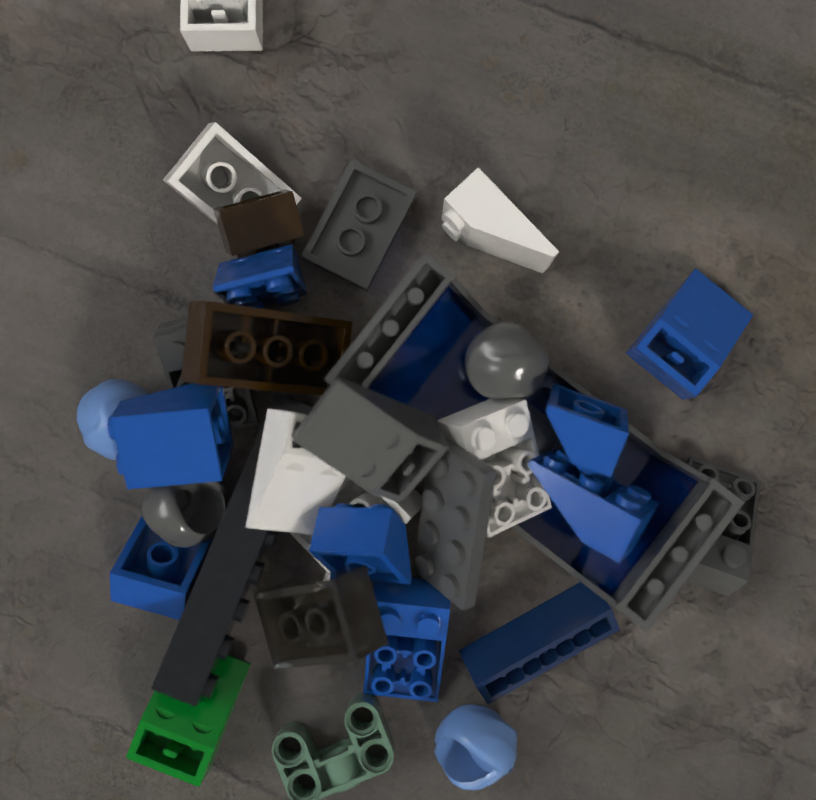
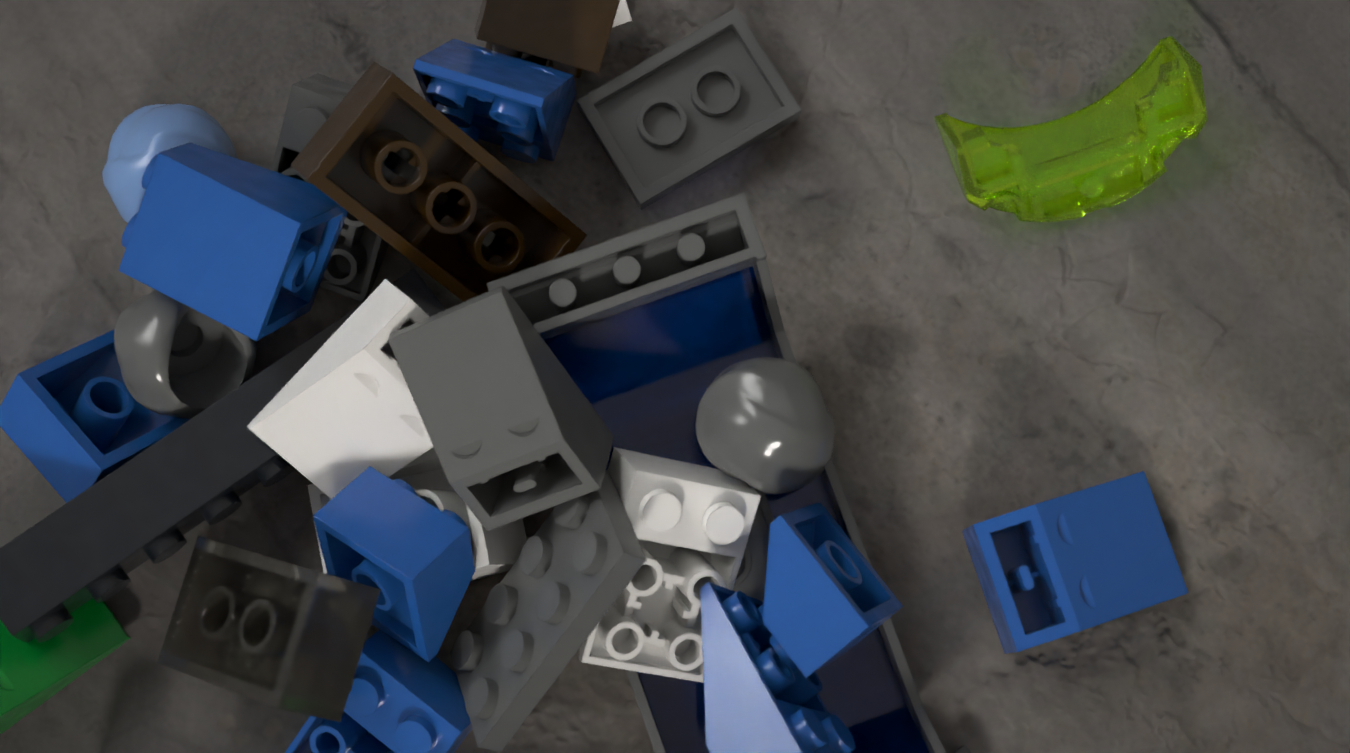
camera: 30 degrees right, 5 degrees down
(493, 224) = (876, 221): white slope -> none
(572, 125) = (1087, 156): none -> clear neon green windscreen

